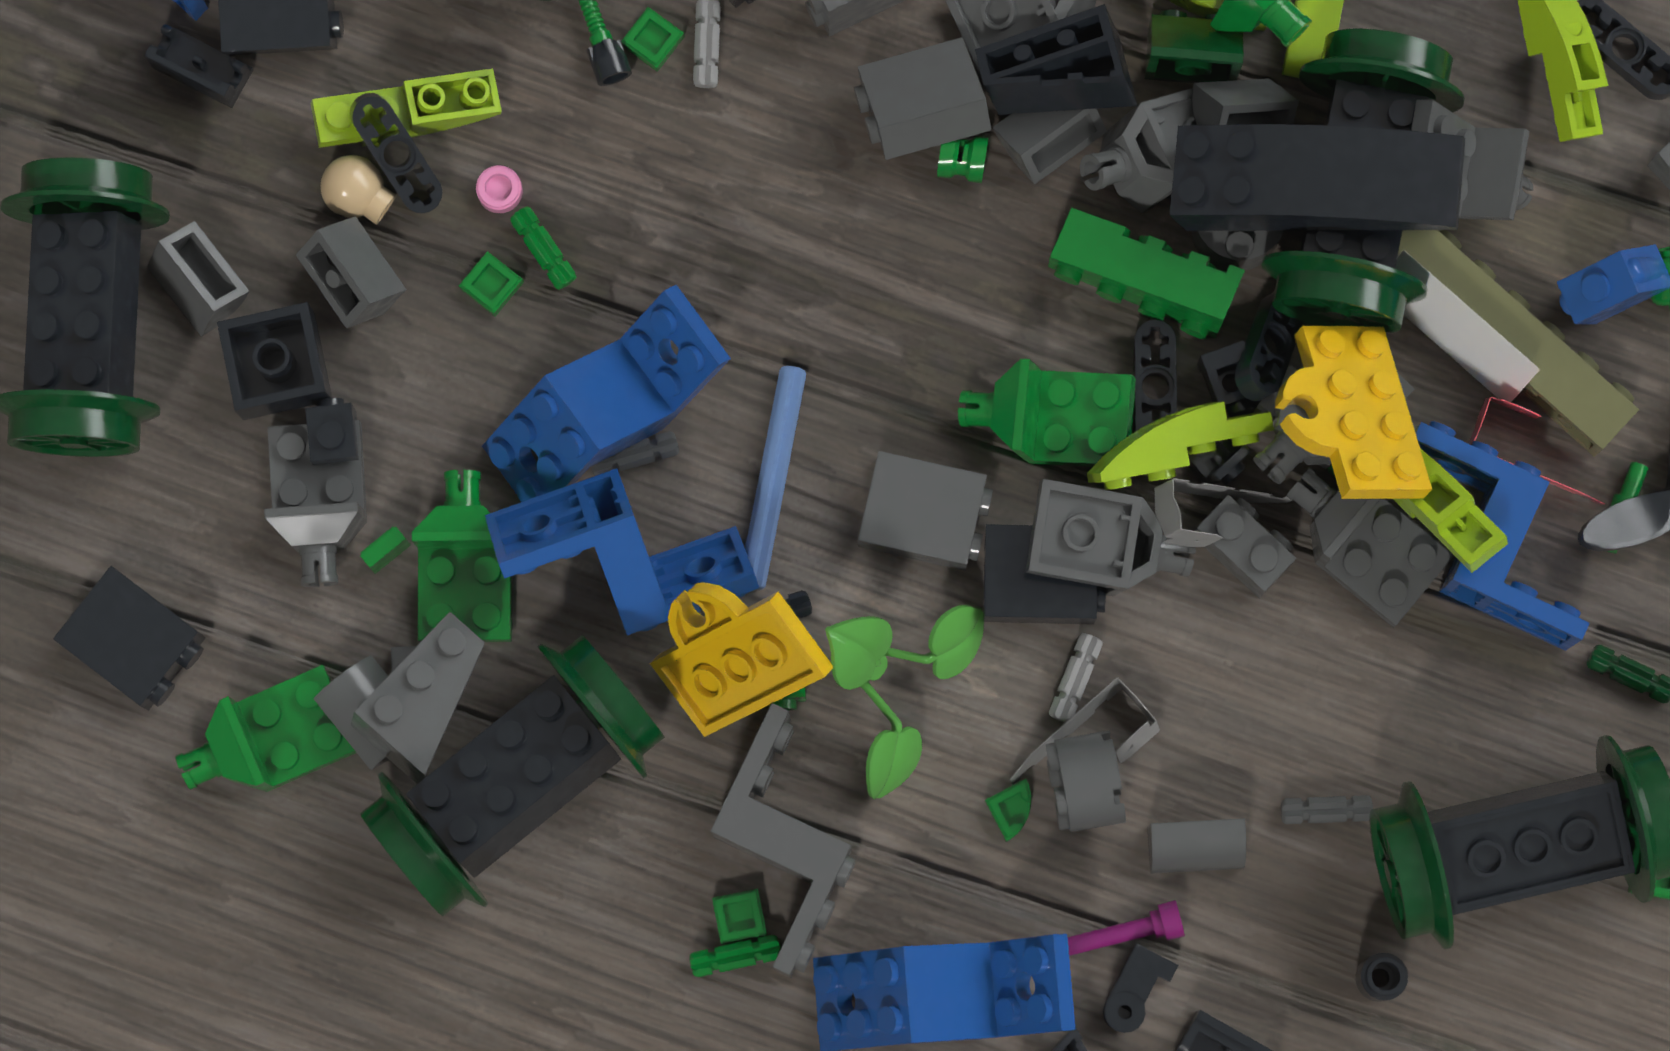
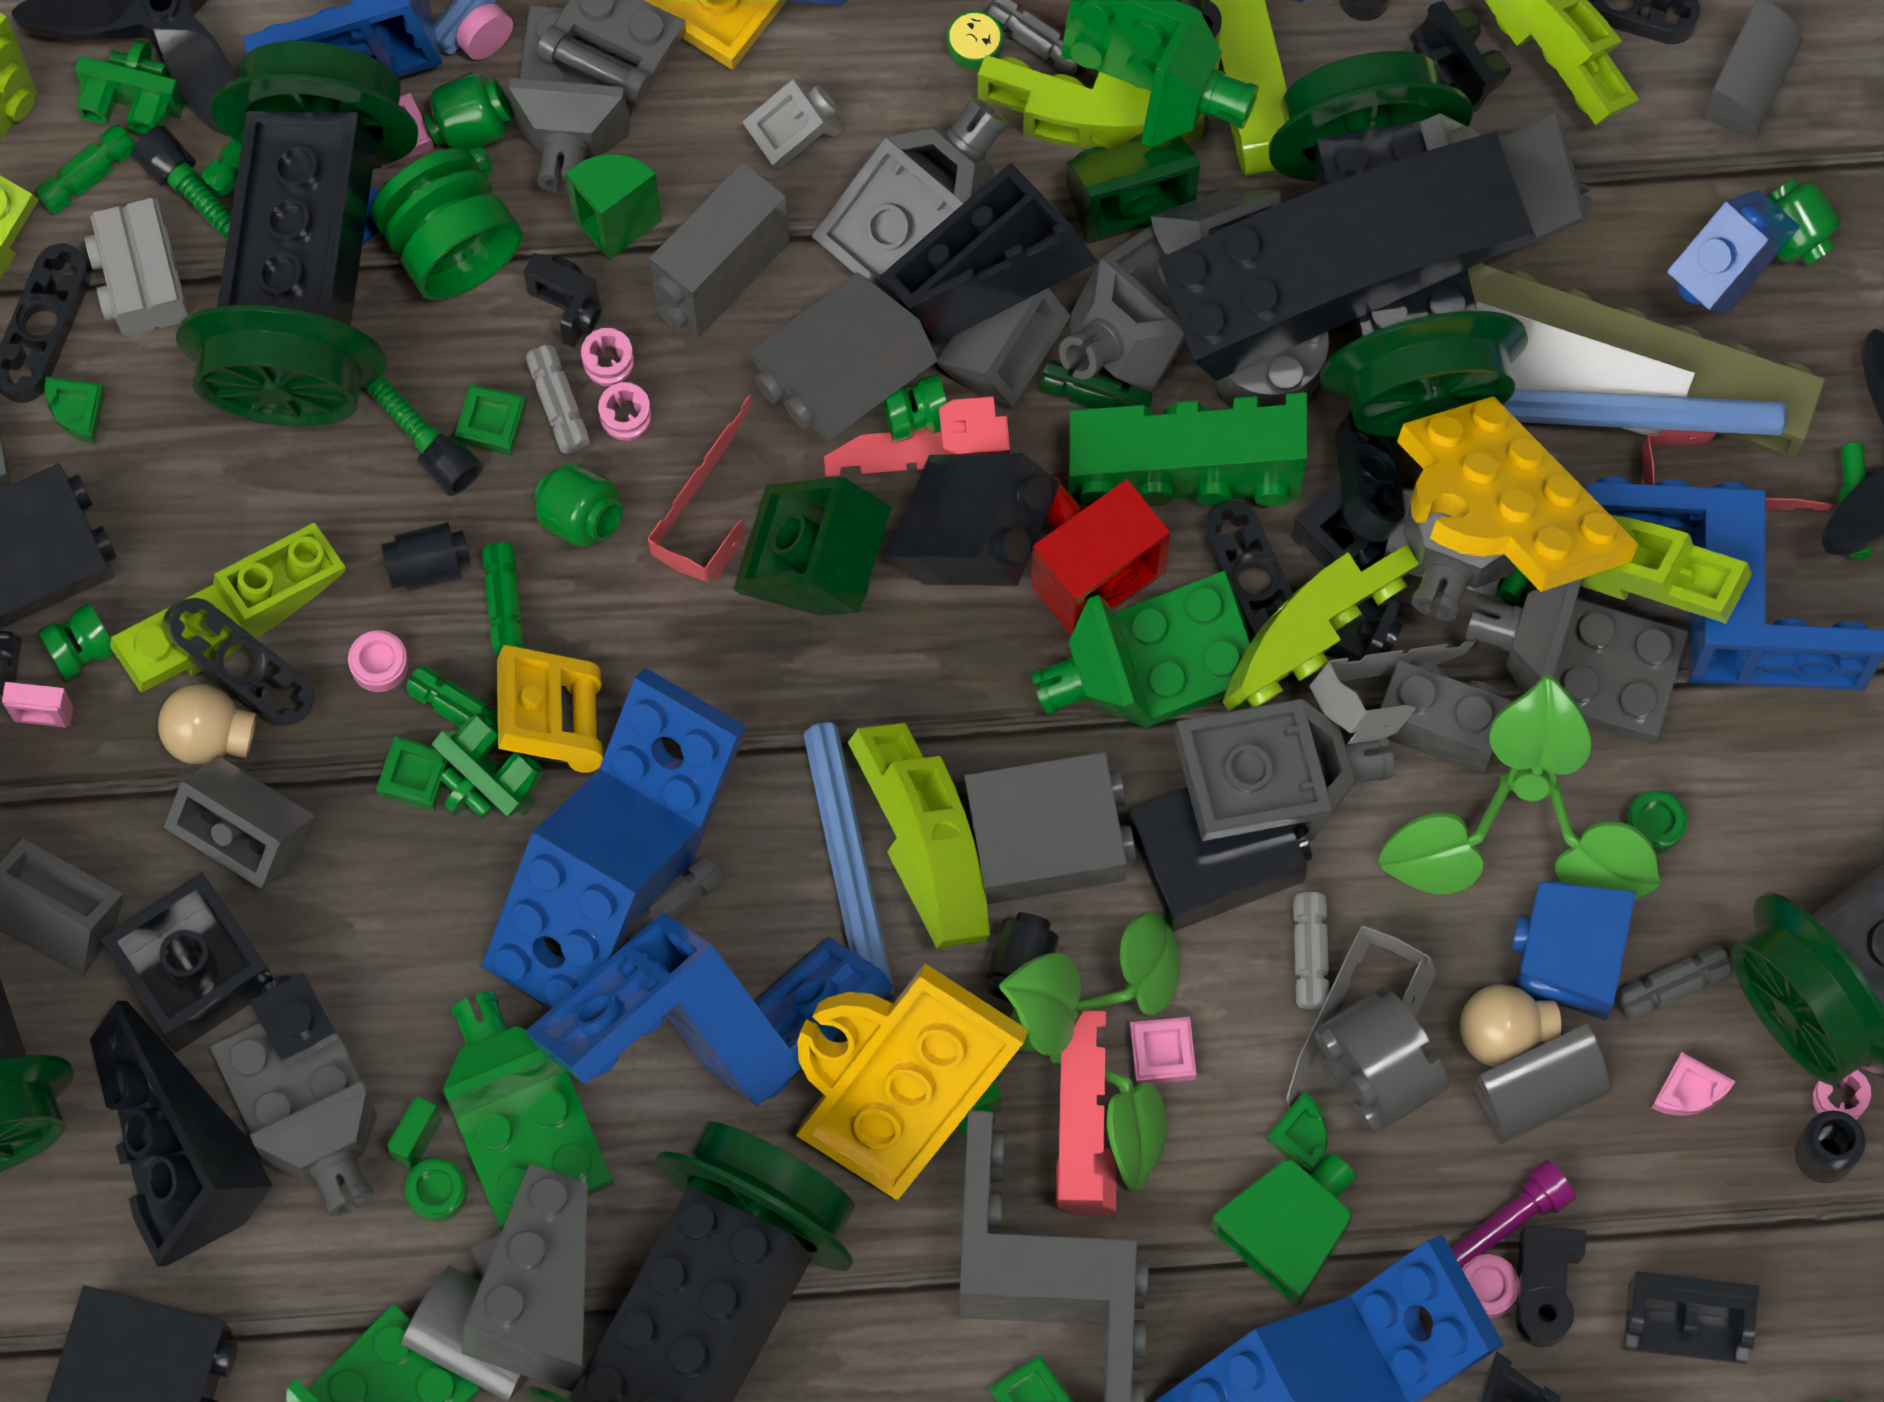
camera: 25 degrees left, 10 degrees down
(220, 495) = (184, 1152): none -> black wedge
(244, 125) = (37, 704): none -> bright pink tile
(300, 88) = (89, 635): none -> green wheel
(385, 594) = (435, 1190): none -> green tile
(535, 308) = (505, 786): none -> green hips
(562, 126) = (426, 557): none -> black brick
(590, 273) = (532, 707): none -> yellow plate
(606, 179) = (502, 596): none -> green axle
(687, 132) = (578, 505): none -> green head
(737, 72) = (614, 396): none -> bright pink bush
(754, 10) = (596, 342): none -> bright pink bush
(792, 201) = (734, 538): none -> coral piece
(838, 480) = (932, 832): none -> lime slope
(844, 232) = (814, 546): none -> dark green slope
(854, 739) = (1084, 1167): none -> coral piece
(865, 595) = (1016, 944): none -> black brick
(938, 706) = (1163, 1050): none -> bright pink tile
(965, 263) = (973, 519): none -> black brick
(972, 869) = (1288, 1223): none -> green torso
(988, 192) = (879, 454): none -> coral piece
(1043, 322) = (1102, 551): none -> red brick
(1094, 972) = (1493, 1283): none -> bright pink tile
(1104, 200) = (1091, 392): none -> dark green axle
(1191, 792) = (1506, 1023): none -> tan piece
(1264, 753) = (1573, 945): none -> blue torso
(1296, 605) = (1537, 739): none -> bright green plant
(1304, 890) = (1691, 1088): none -> bright pink tile
(1367, 686) = (1659, 818): none -> green tile
(1421, 950) = (1859, 1101): none -> bright pink bush
(1475, 46) = (1449, 42): none -> black hips
(1495, 380) = (1648, 412): none -> medium blue axle

